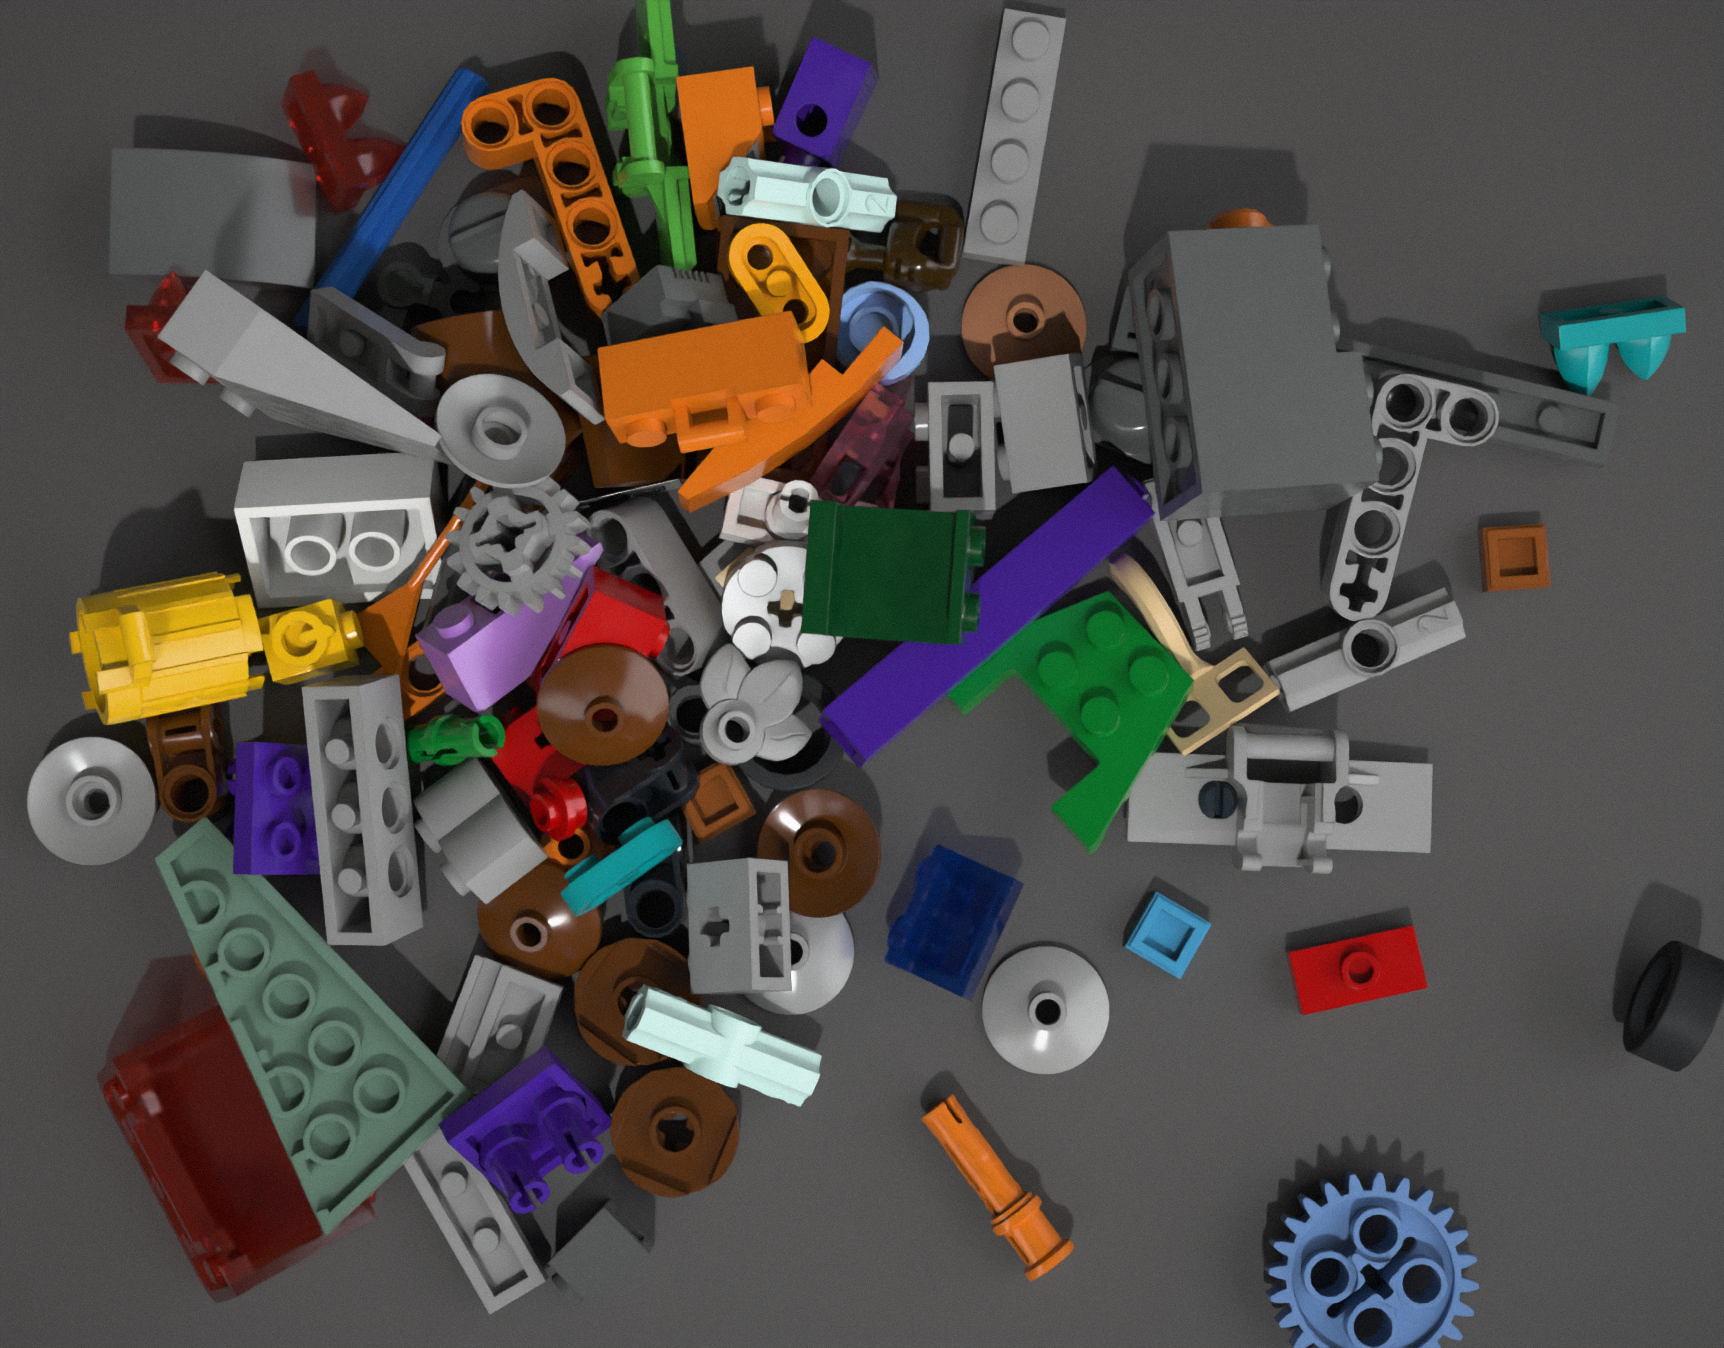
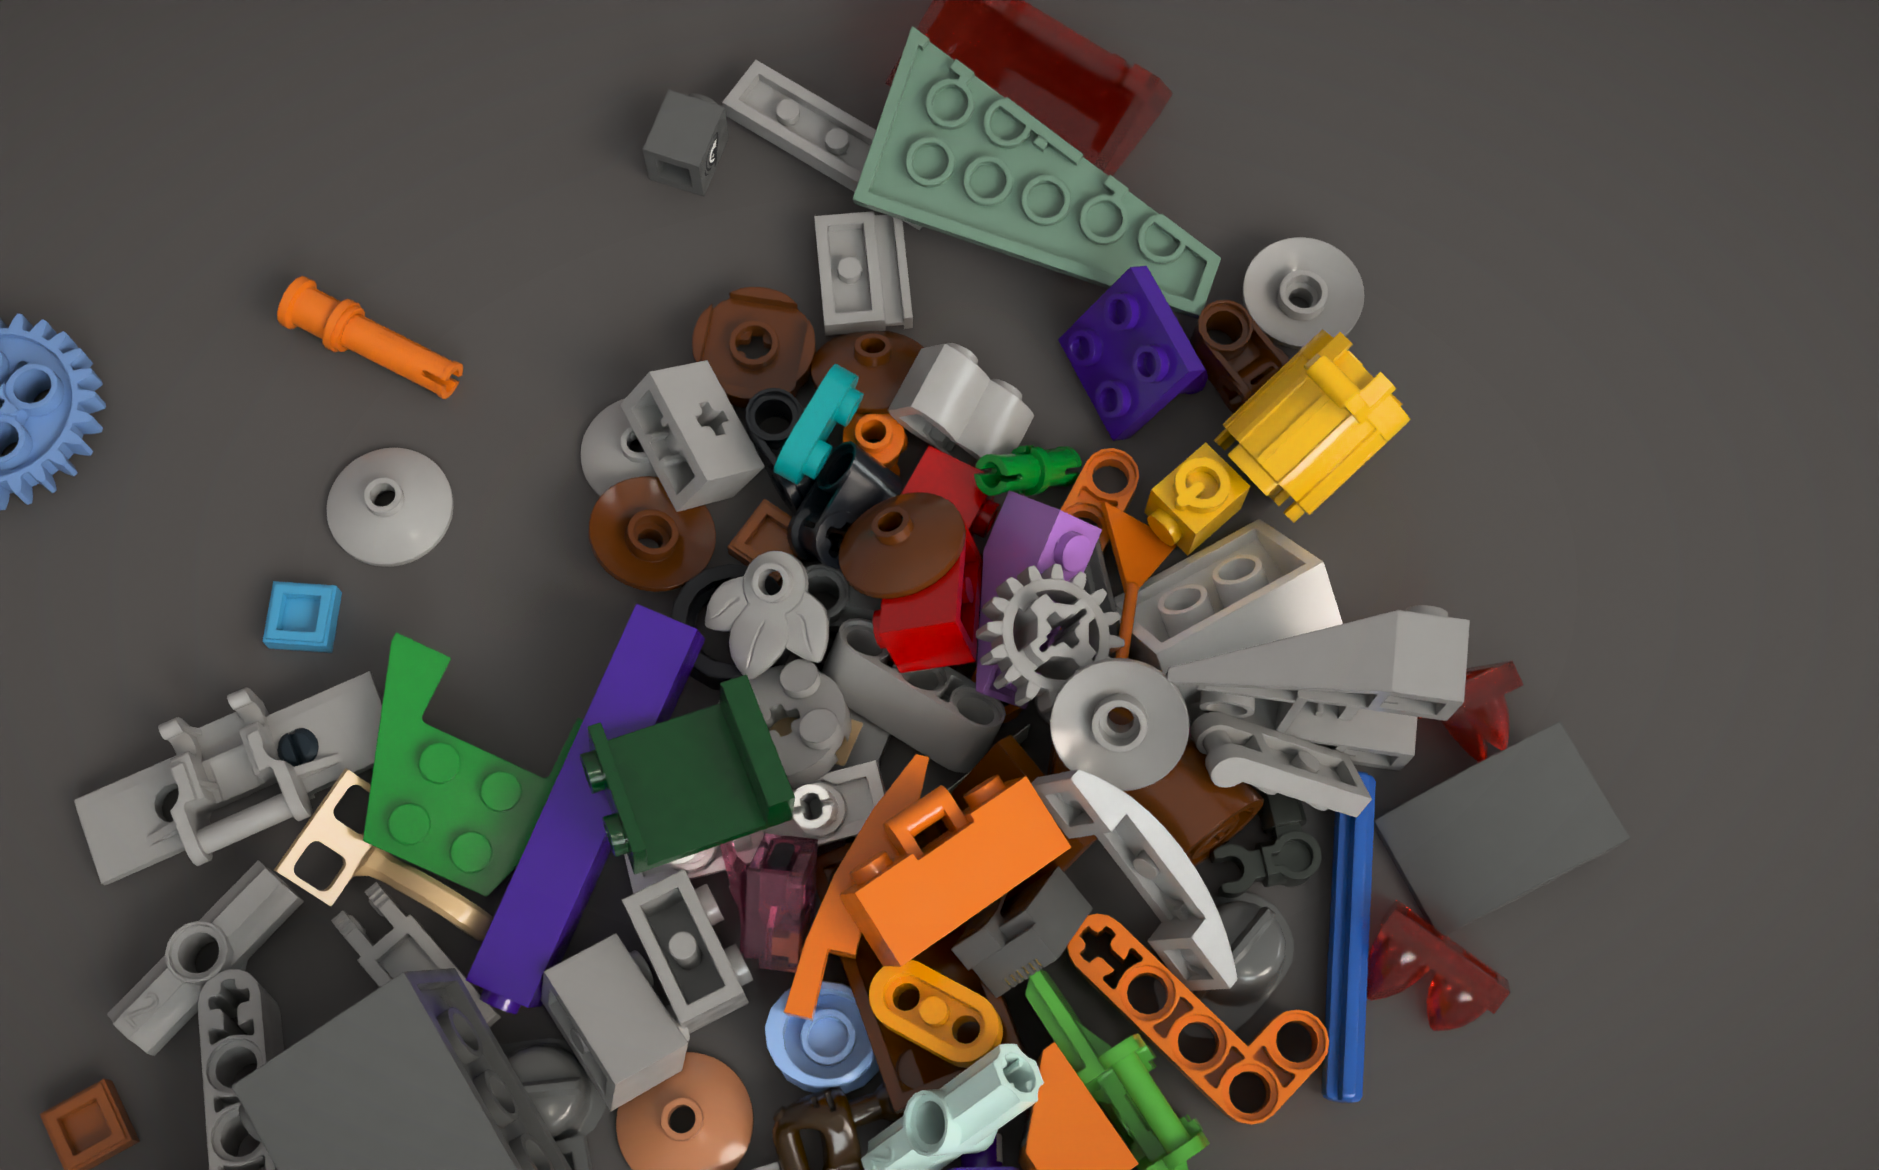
camera: 155 degrees right, 15 degrees down
(362, 809) = (1071, 379): light grey brick -> none
(529, 1127) = (798, 200): dark purple plate -> none
(558, 807) = (899, 450): red plate -> none
(641, 1145) = (679, 294): reddish brown plate -> none
(721, 1045) = (660, 333): light aqua piece -> none
(952, 921) = (503, 533): clear blue bracket -> none
(1356, 969) = (108, 666): red plate -> none

